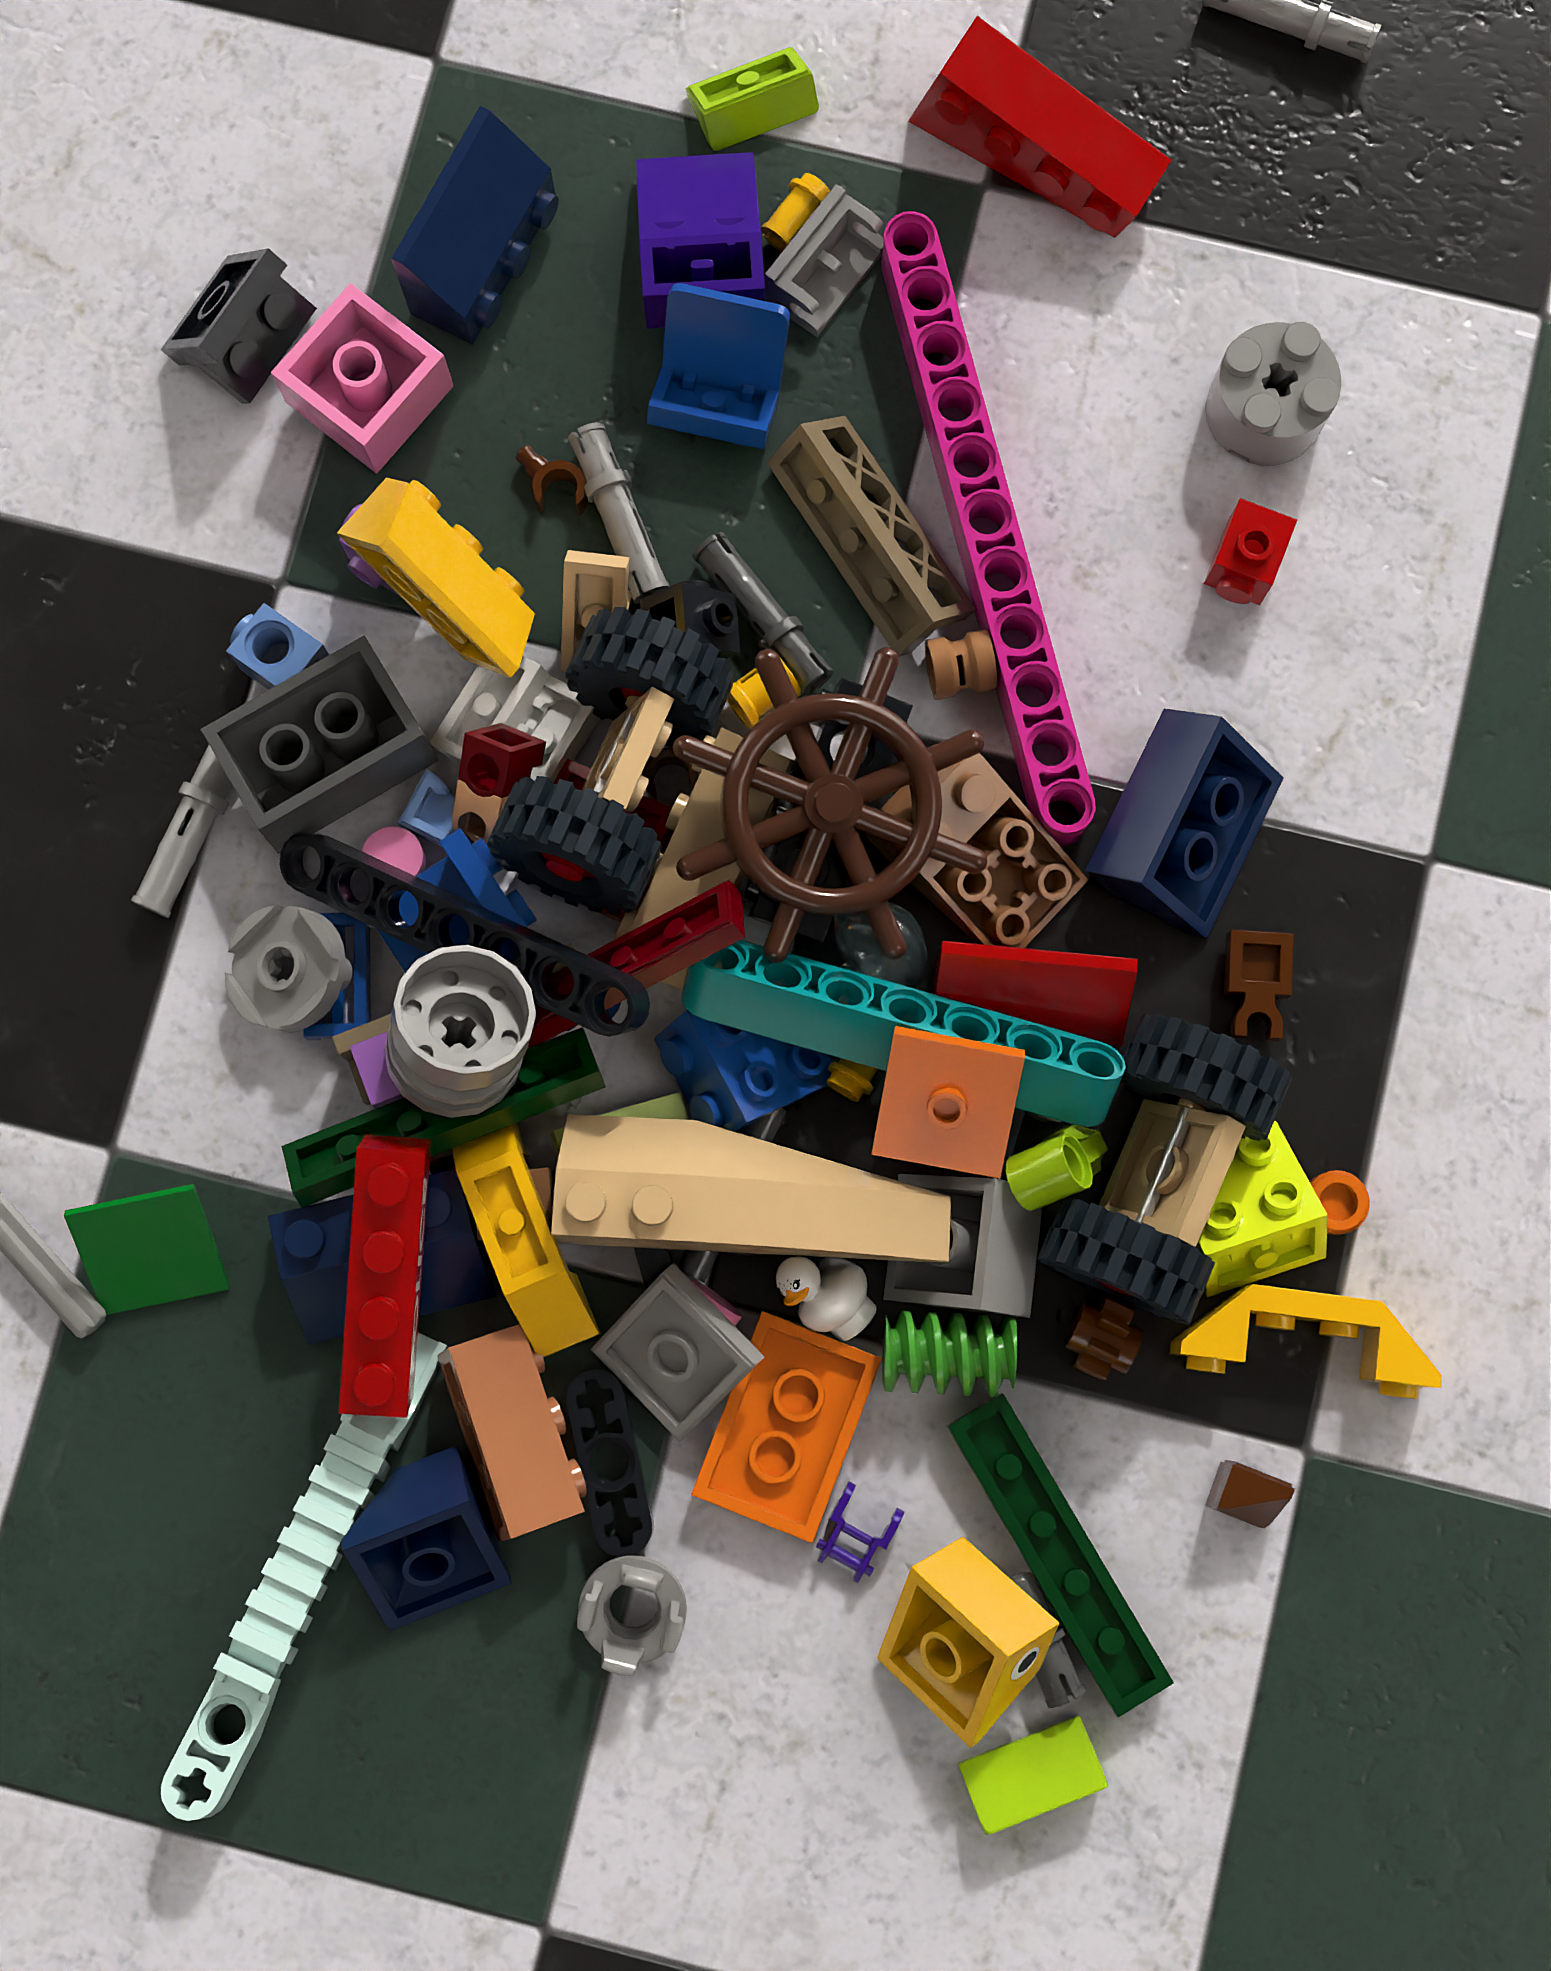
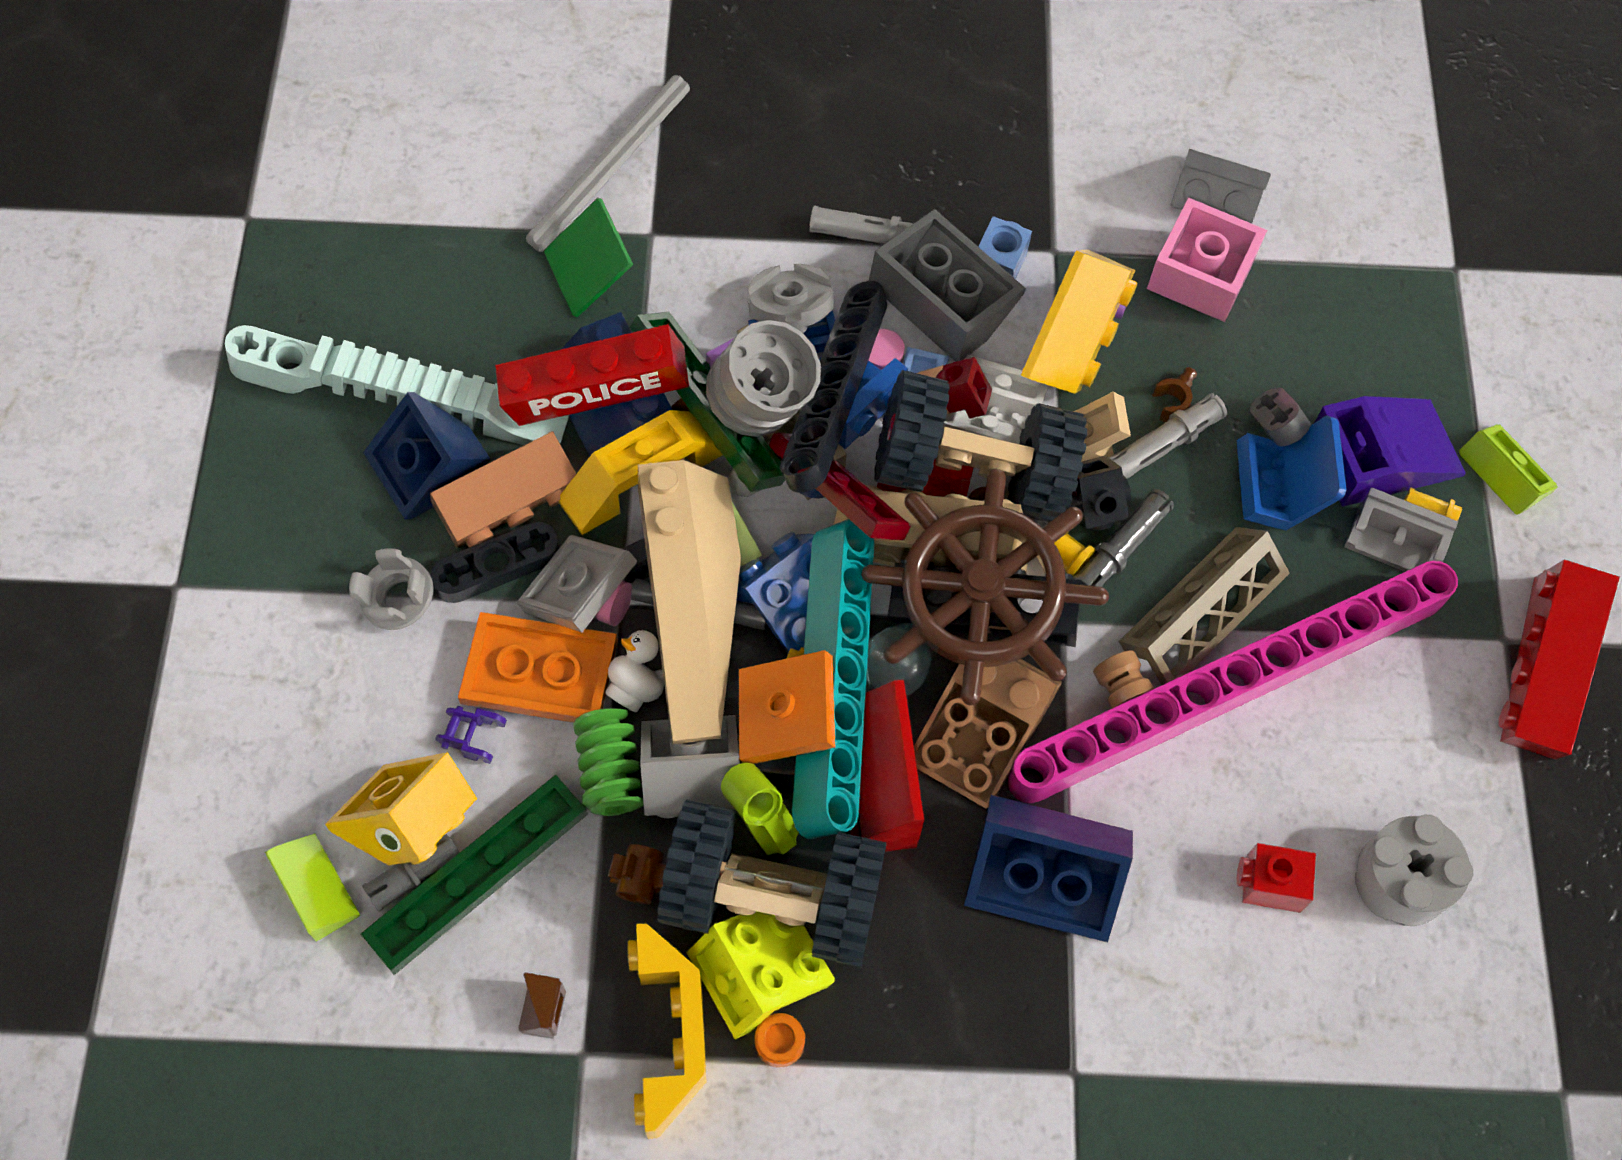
camera: 75 degrees right, 15 degrees down
(475, 229) = (1337, 301): dark blue slope -> none
(628, 346) = (1280, 416): none -> dark grey beam
(1259, 972) = (947, 944): reddish brown plate -> none

